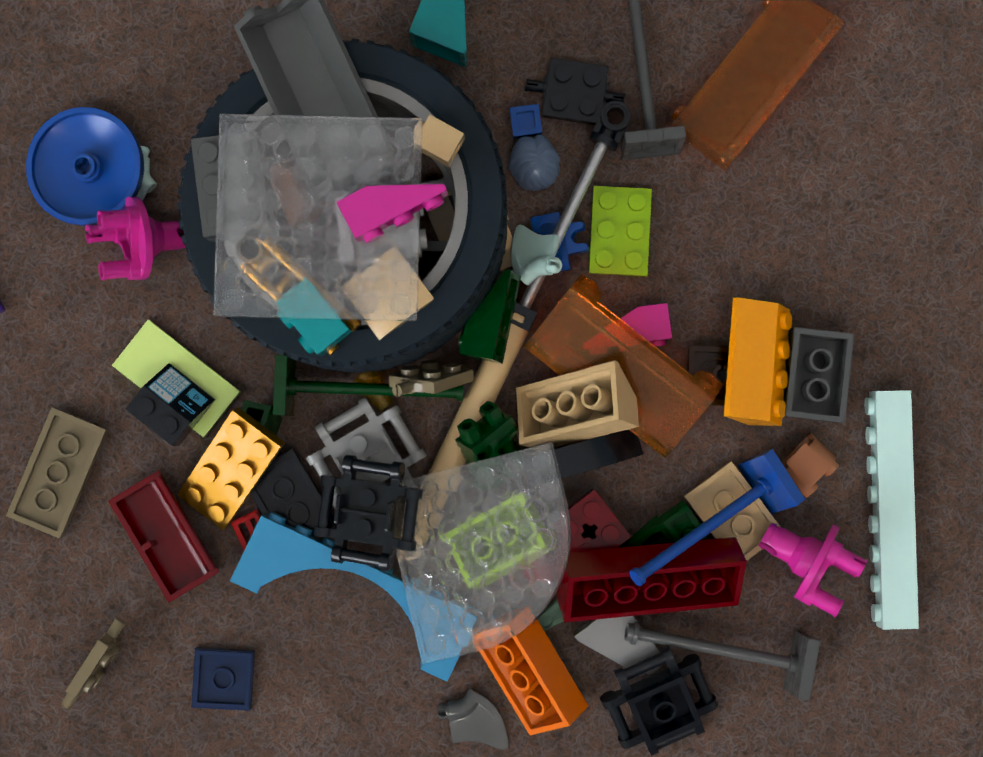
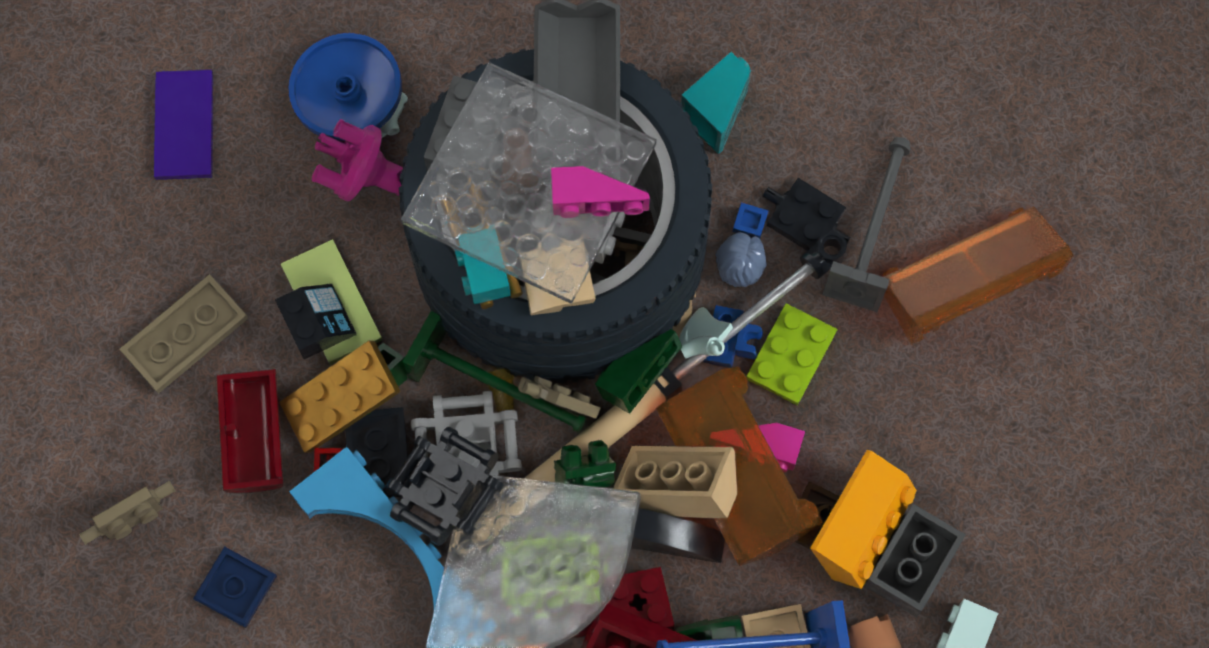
camera: 20 degrees right, 15 degrees down
(441, 140) = (664, 172): tan brick -> none

